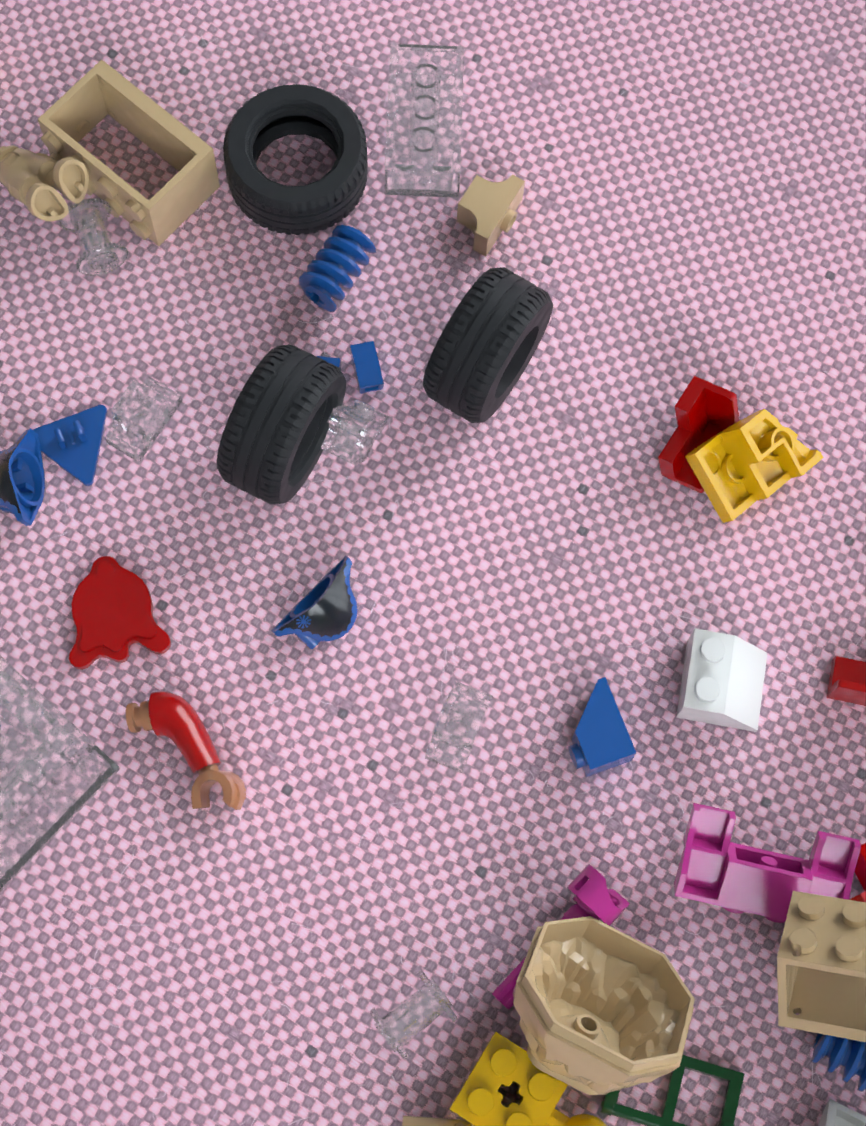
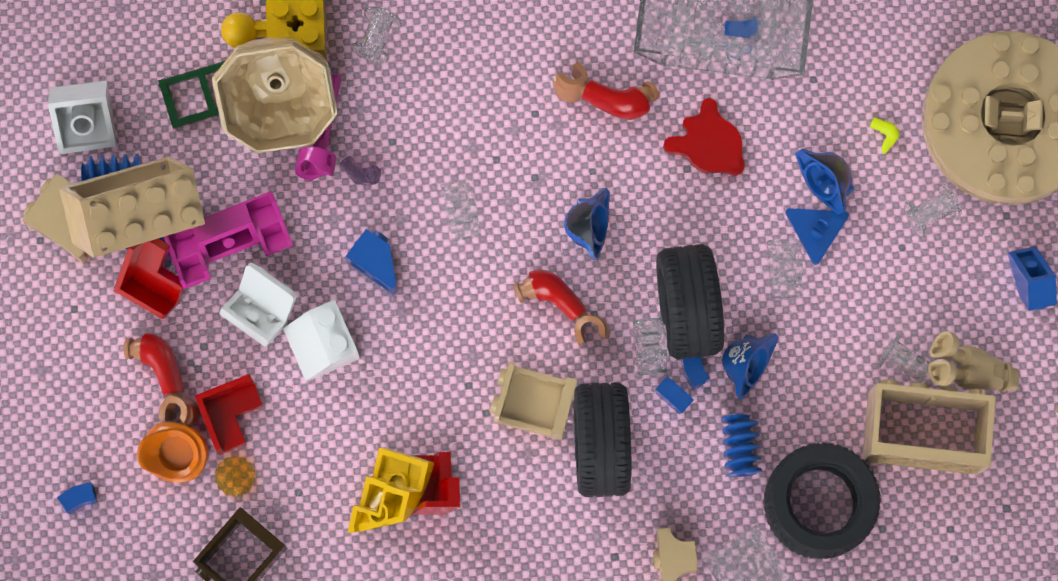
camera: 145 degrees right, 5 degrees up
(249, 351) = (747, 360): none -> blue hat
(417, 564) = (551, 288): none -> red piece
(522, 460) = (533, 401): none -> tan panel
(548, 851) = (361, 176): none -> clear purple arm
(777, 764) = (260, 305): none -> white bracket

